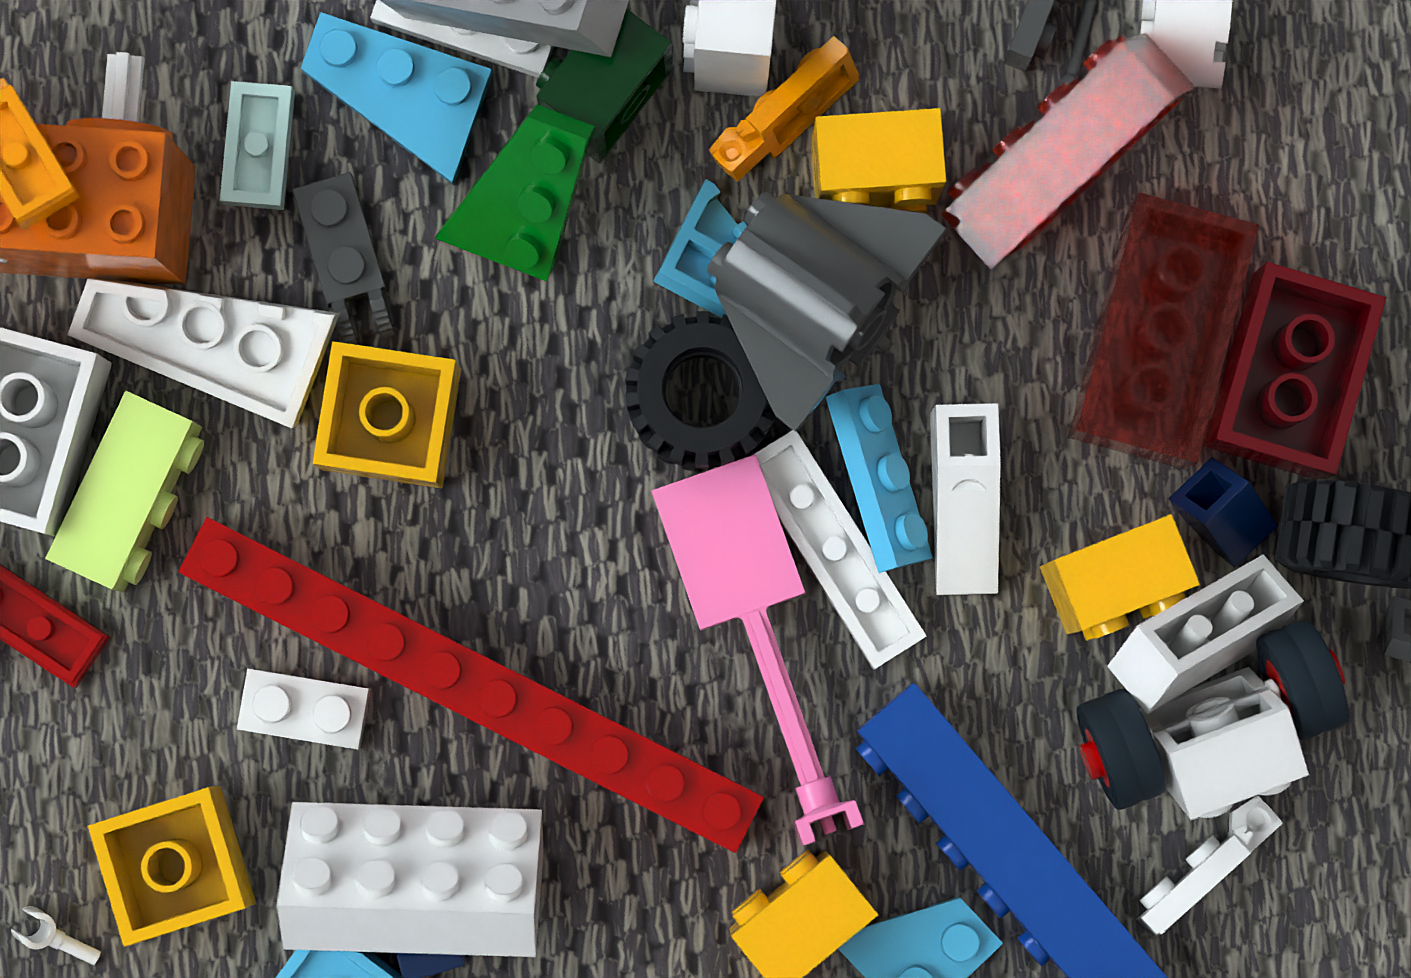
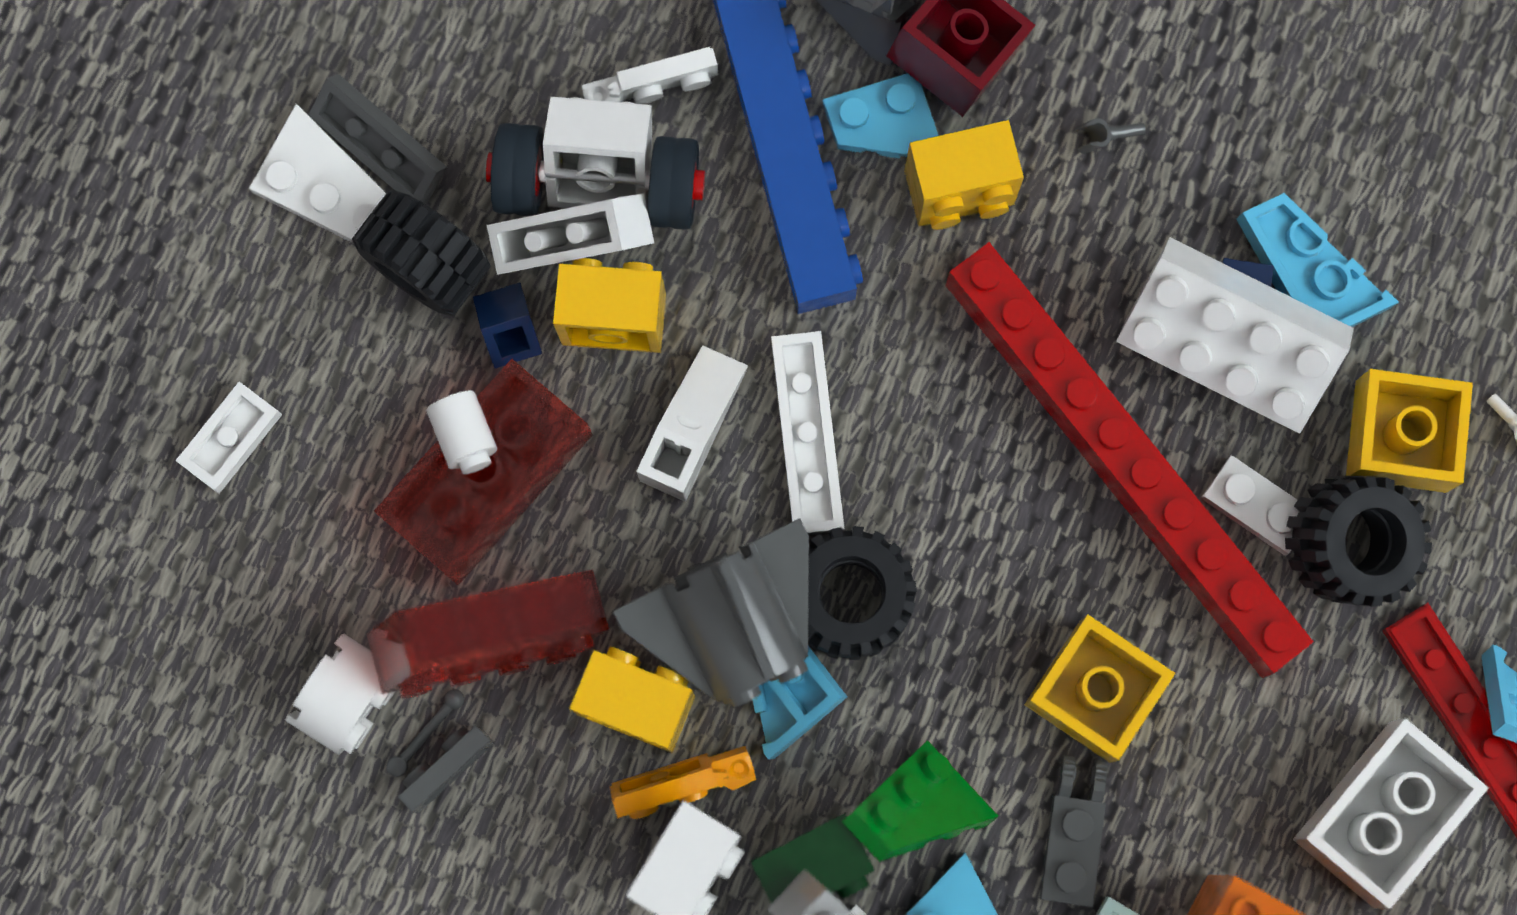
camera: 150 degrees left, 5 degrees down
(126, 493) = (1325, 728): yellowish green brick -> none
(133, 705) = (1394, 548): none -> black tyre
(223, 345) = (1205, 811): white wing -> none
(736, 568) = (886, 450): bright pink piece -> none
(879, 477) = (748, 468): medium azure plate -> none
(1207, 348) = (462, 431): none -> white brick
(1295, 371) = (385, 396): dark red brick -> none

